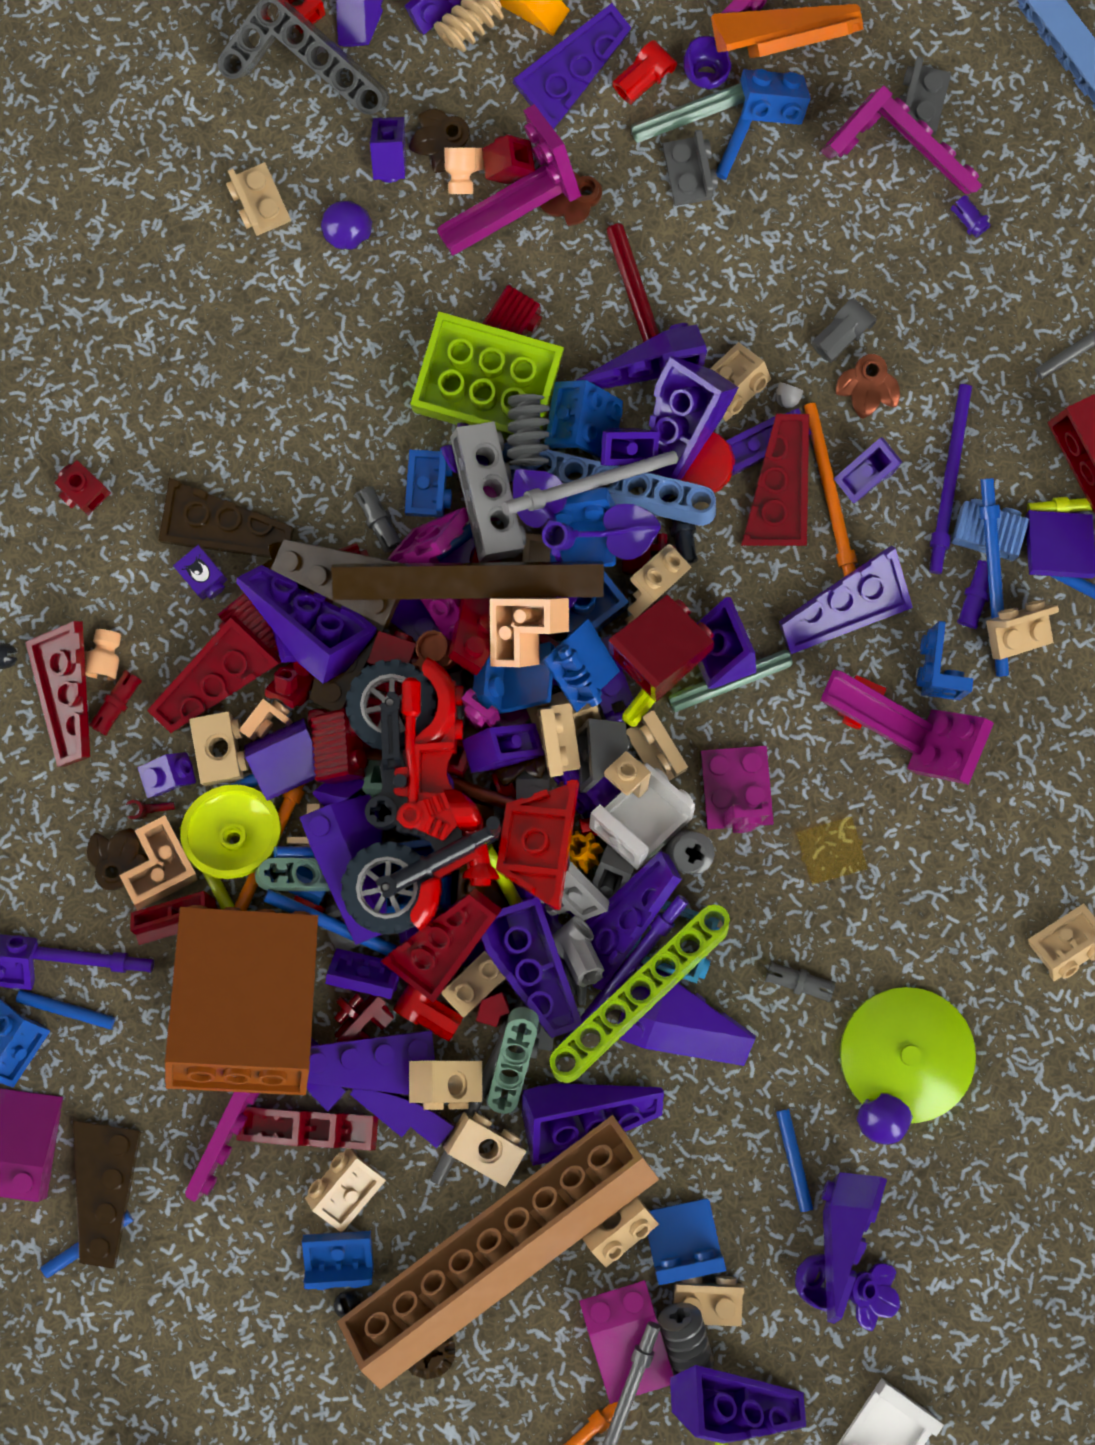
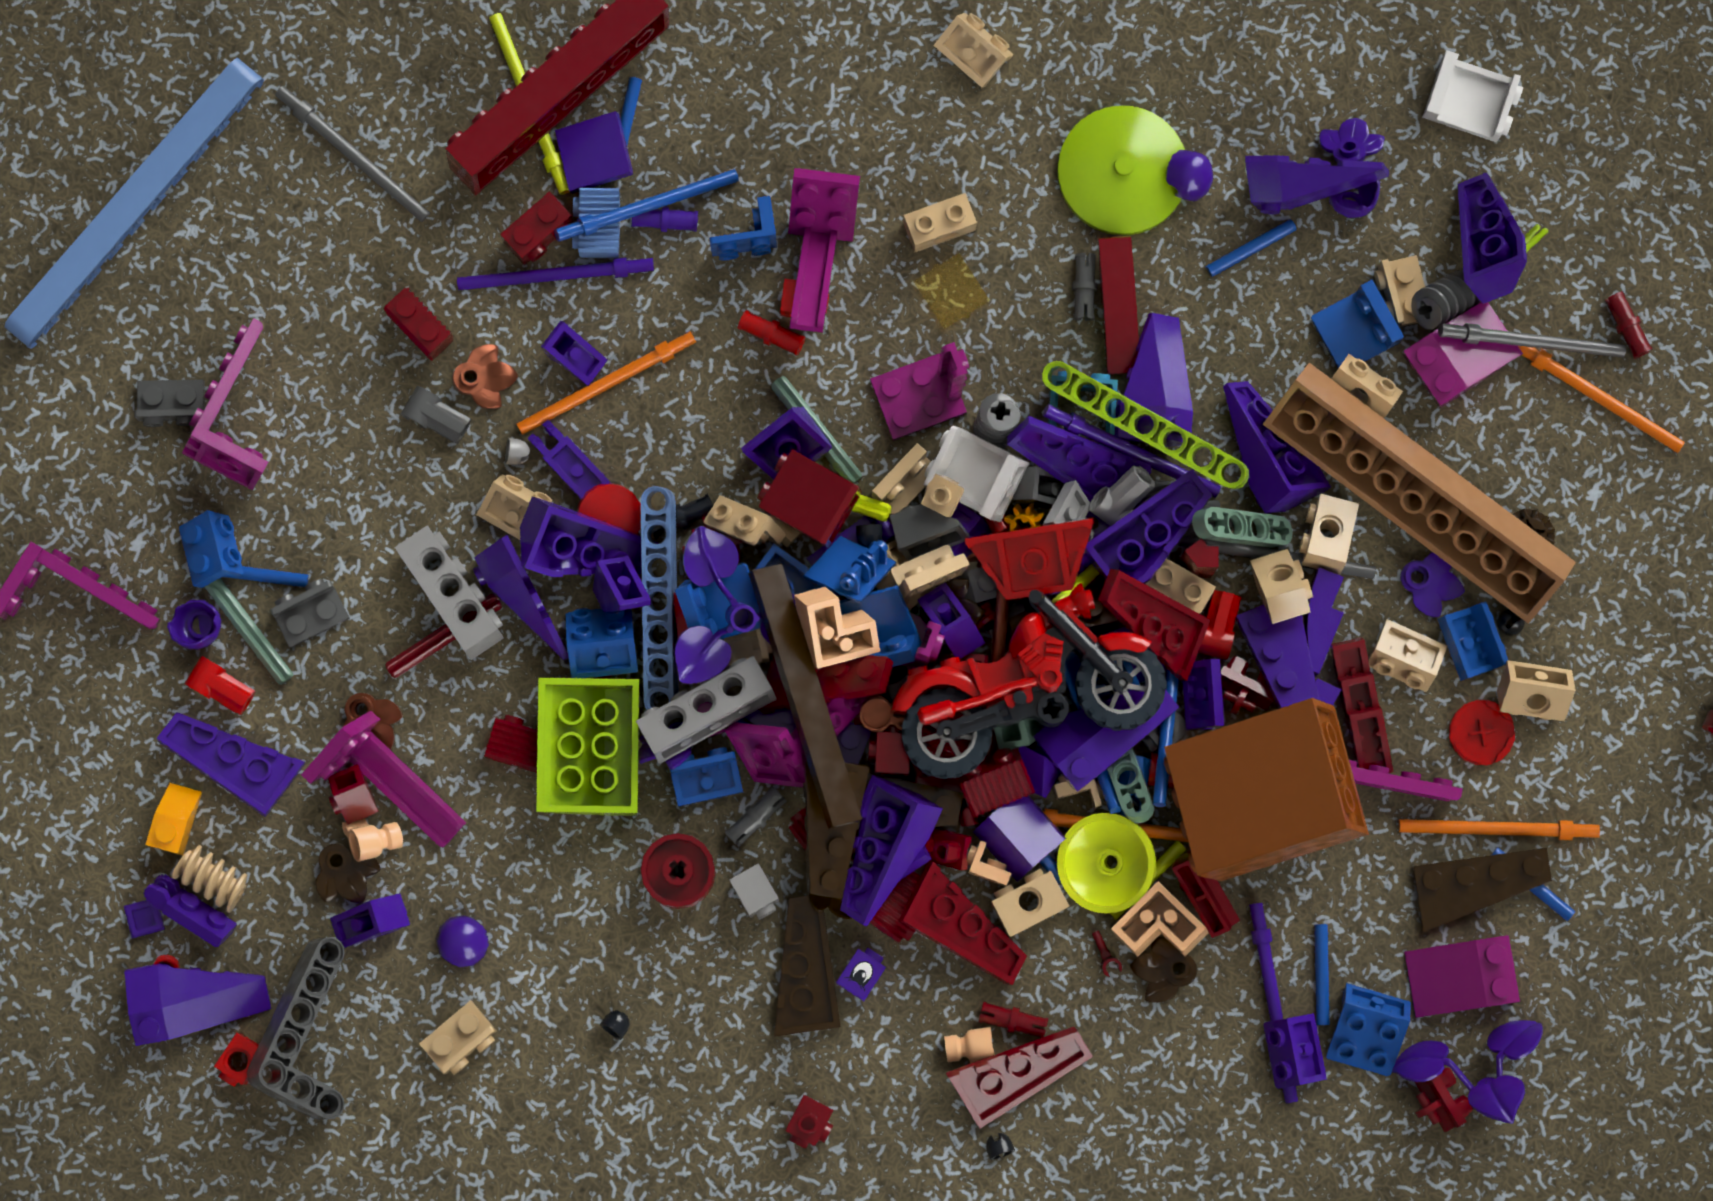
camera: 115 degrees left, 0 degrees up
(128, 1292) = (1563, 829): none -> orange bar
(166, 774) = (1068, 947): dark purple bracket -> none
(227, 340) = (616, 1024): none -> black hinge
(248, 1240) = (1481, 732): none -> red tile
(268, 1307) = (1536, 690): none -> tan brick
(304, 493) = (755, 892): none -> light grey brick
(343, 413) = (678, 851): none -> dark red wheel
(406, 1241) = (1436, 586): none -> dark purple plate
(527, 430) = (636, 684): dark grey piece -> none
(537, 498) = (708, 649): light grey bar -> none
(612, 697) = (868, 533): none -> black hinge
(713, 275) = (472, 636): none -> light grey brick
(774, 1009) = (1118, 303): none -> dark red slope
(781, 494) = (617, 430): dark red wing -> none
(783, 29) = (141, 555): orange wedge -> none
(838, 661) = (771, 332): none -> red pin
(853, 602) = (706, 331): wing -> none
(902, 856) = (939, 222): none -> tan brick
(936, 336) = (418, 323): none -> dark red brick
(970, 216) = (283, 323): dark purple pin -> none
(997, 460) = (535, 229): none -> dark red brick
(1020, 630) = (689, 168): tan bracket -> none

